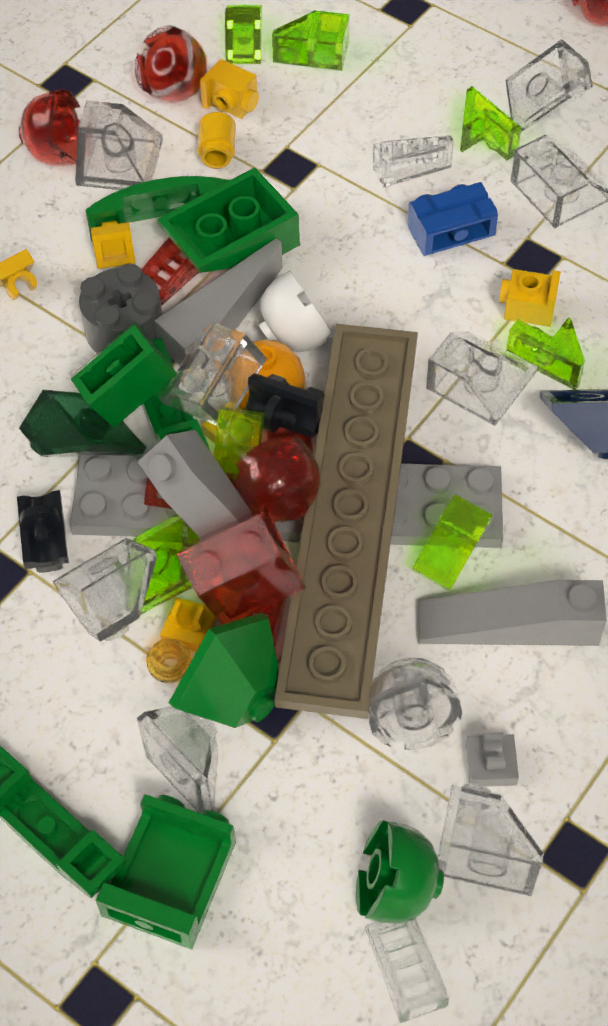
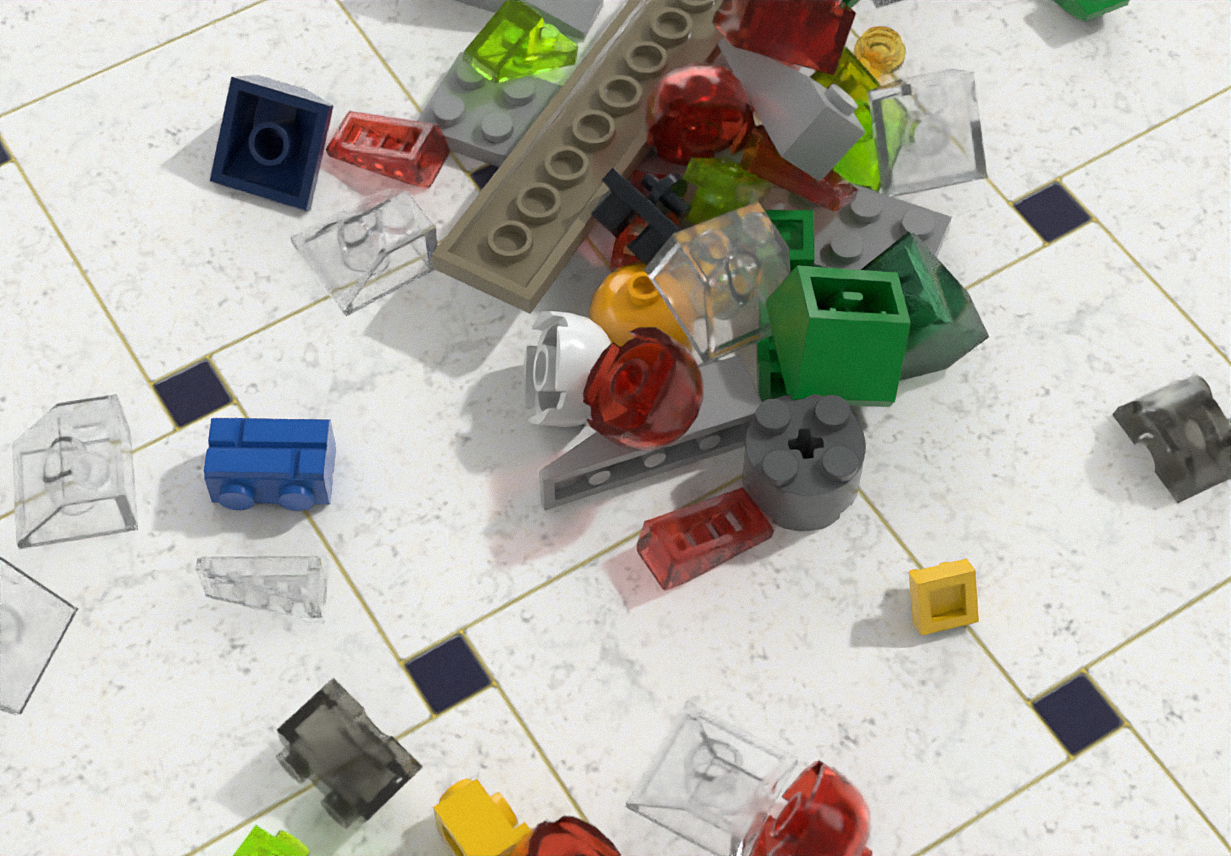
camera: 160 degrees left, 0 degrees up
(42, 532) = (987, 208): black hips -> none
(112, 244) = (778, 588): yellow tile -> none
(149, 199) = (681, 649): green slope -> none
(216, 139) = (546, 735): yellow brick -> none
(226, 265) = (644, 391): none -> clear red cylinder
(232, 223) = (599, 526): green slope -> none
(313, 99) = (344, 755): none -> clear smoke cylinder
(488, 123) = (126, 614): clear neon green slope -> none
(510, 461) = (416, 164): none -> clear red slope
(530, 296) = (239, 312): yellow brick -> none
(555, 356) = (262, 227): clear neon green slope -> none

